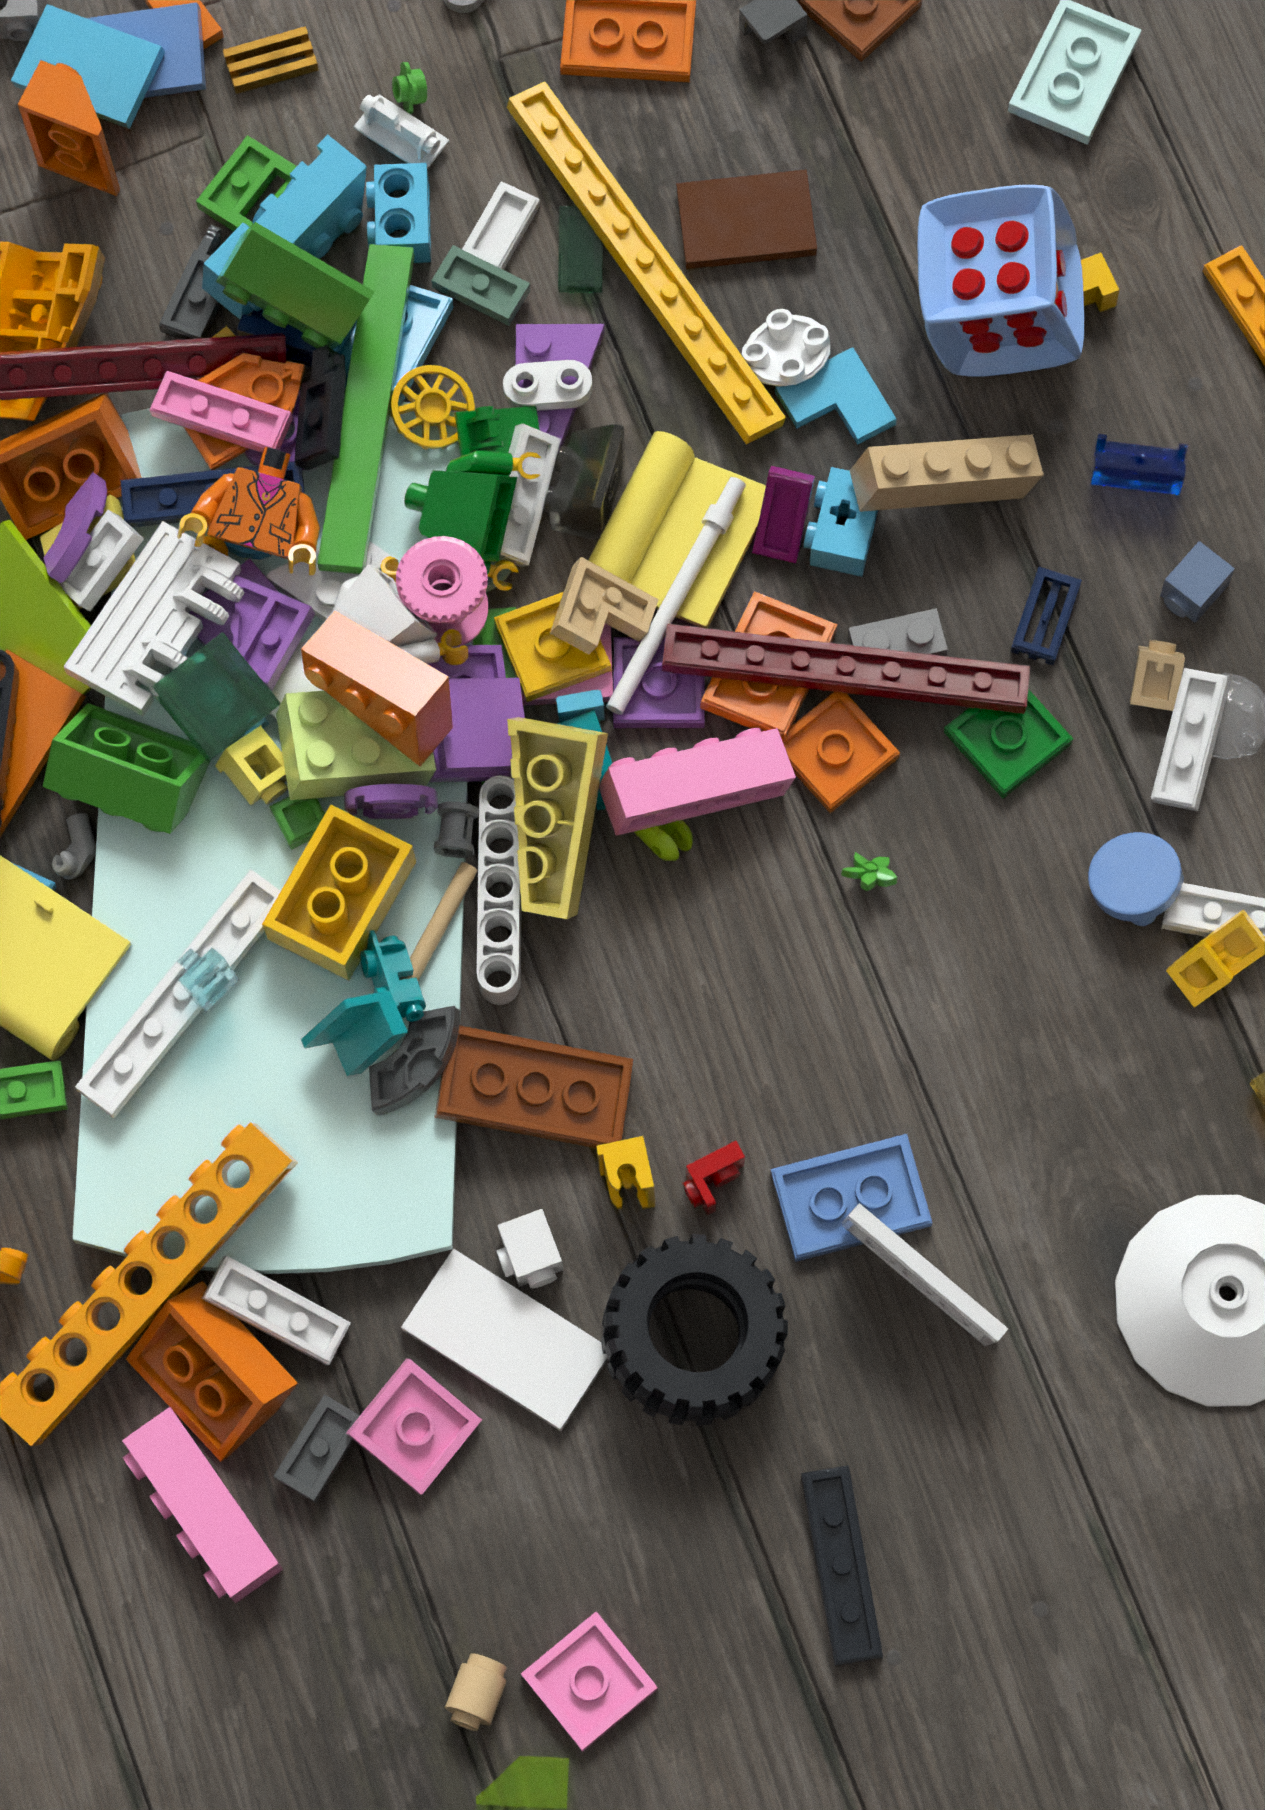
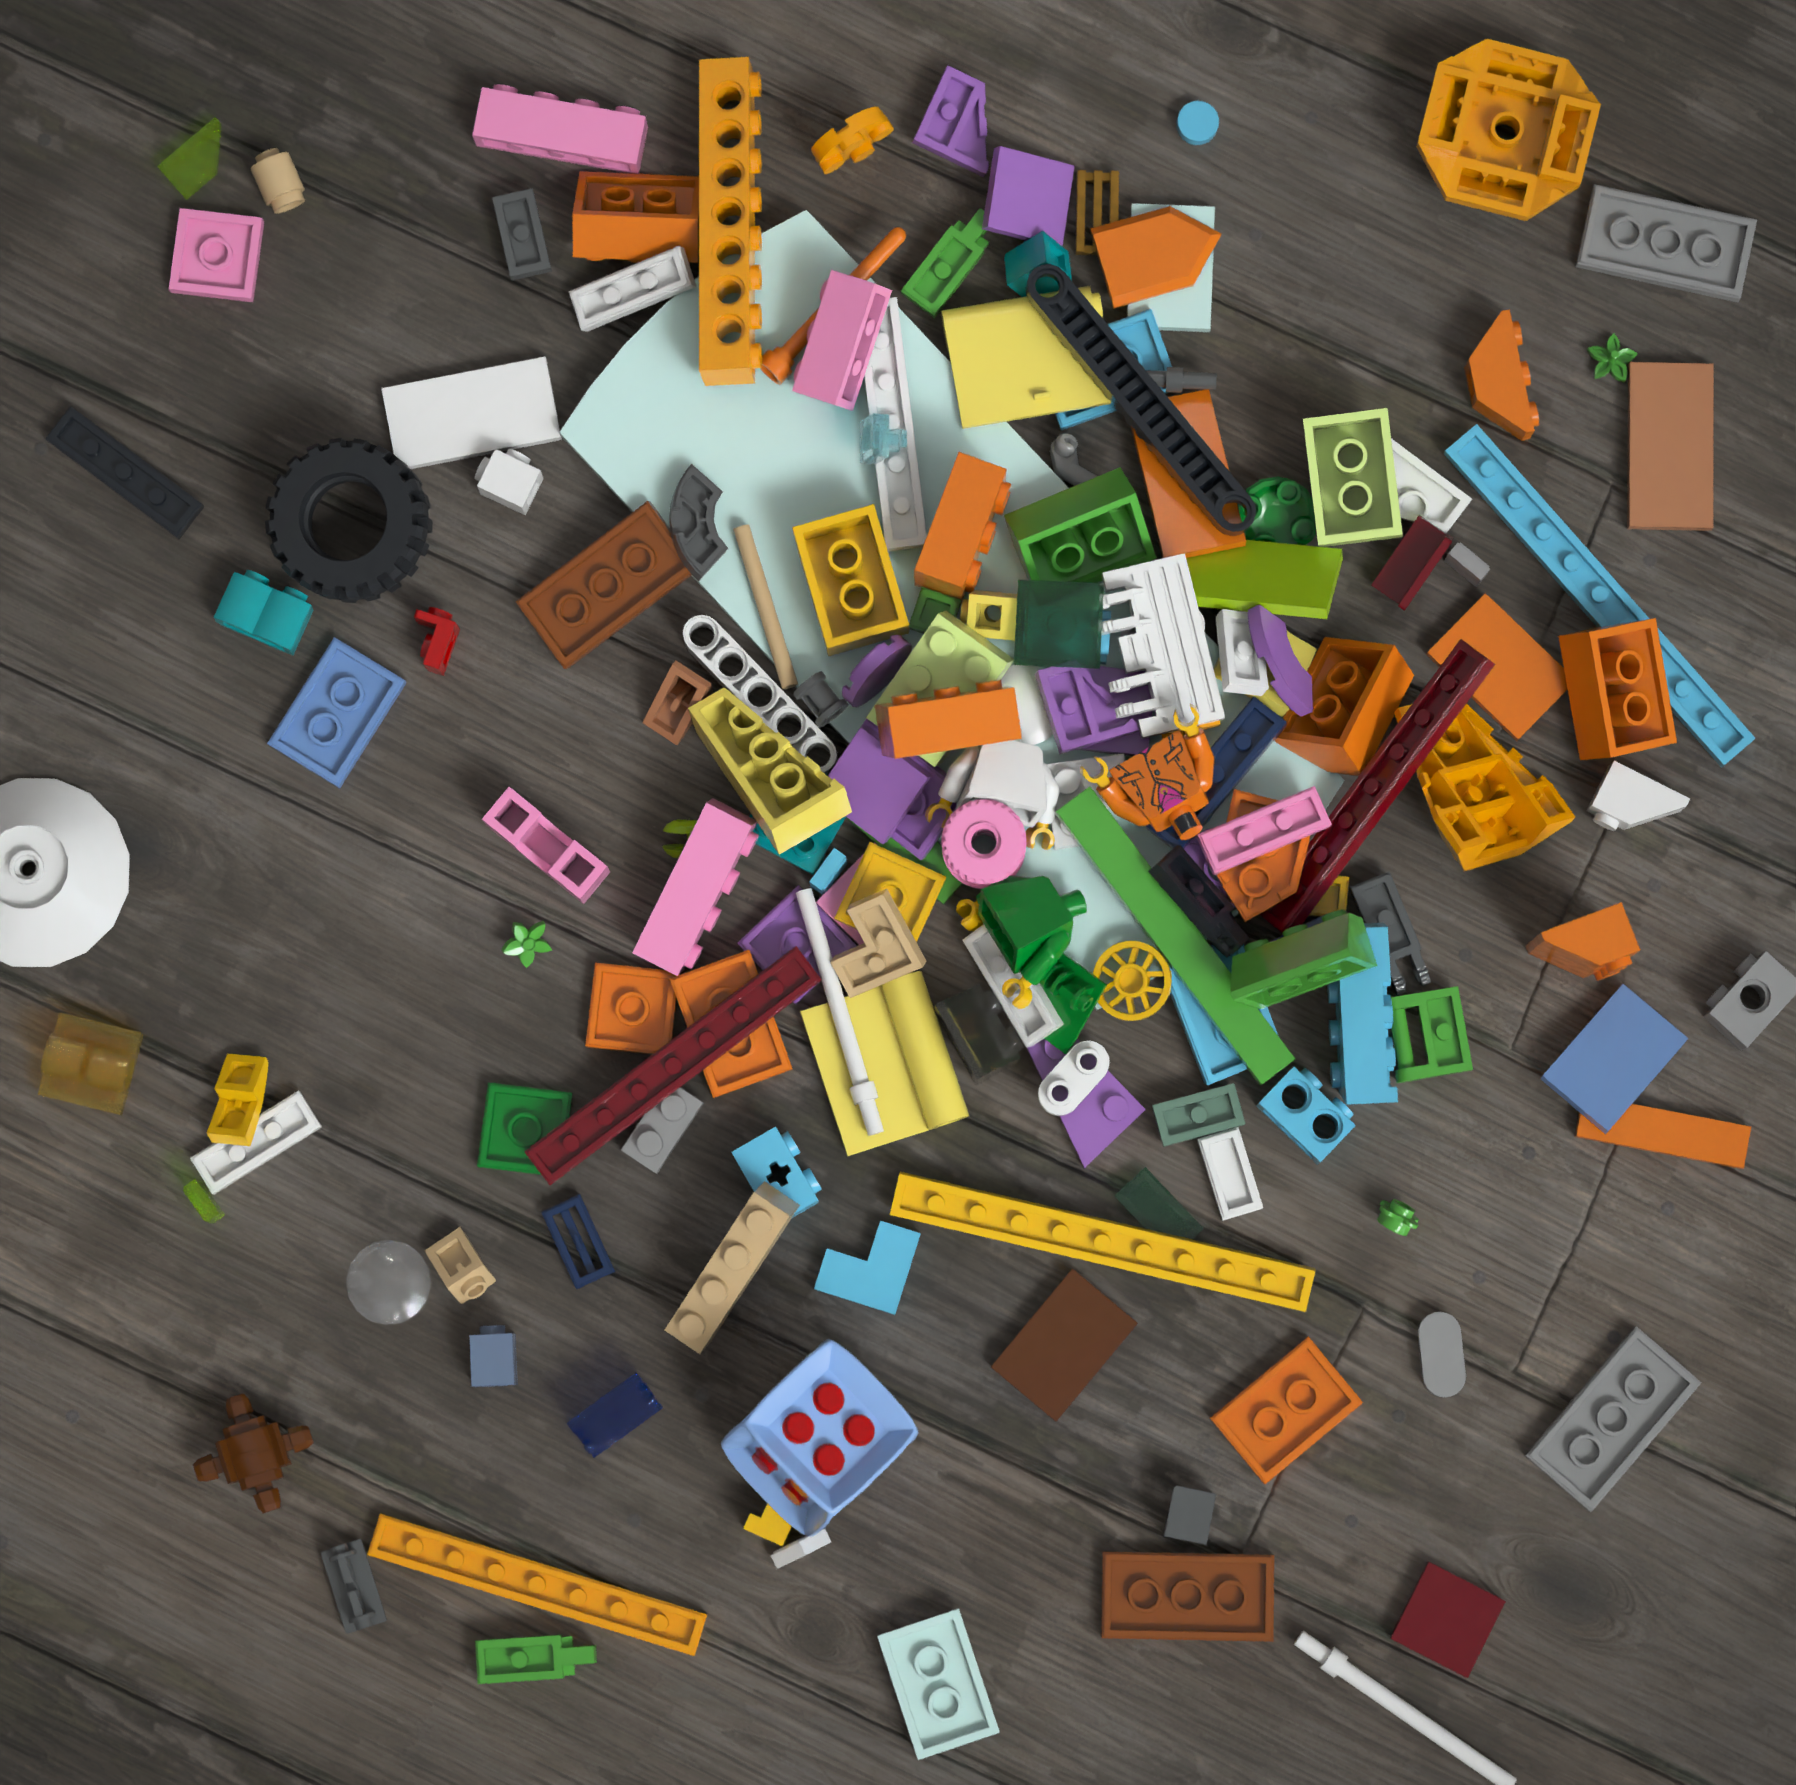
camera: 135 degrees right, 10 degrees up
(111, 62) = (1636, 1012): medium azure tile -> none
(154, 1088) = (841, 340): none -> bright pink brick
(212, 848) = (962, 527): none -> orange brick
(215, 1128) = (778, 363): none -> orange piece
(269, 53) = (1537, 1117): pearl gold tile -> none
(360, 1030) = (741, 500): teal panel -> none
(384, 965) = (775, 563): teal hinge -> none
(399, 131) = (1371, 1179): white hinge -> none
(414, 1426) = (474, 301): bright pink tile -> none
(569, 945) = (670, 707): none -> nougat slope
(626, 1165) = (493, 584): yellow hinge -> none
(783, 514) = (820, 1136): magenta tile -> none
(783, 924) = (546, 845): none -> bright pink arch
(787, 349) = (938, 1268): white dish -> none
(834, 1329) = (264, 612): none -> teal brick
(924, 1276) = (231, 690): white tile -> none
(1091, 243) = (799, 1548): none -> white tile
(1135, 877) = (343, 1102): medium blue tile -> none
(1191, 739) = (394, 1238): white tile -> none

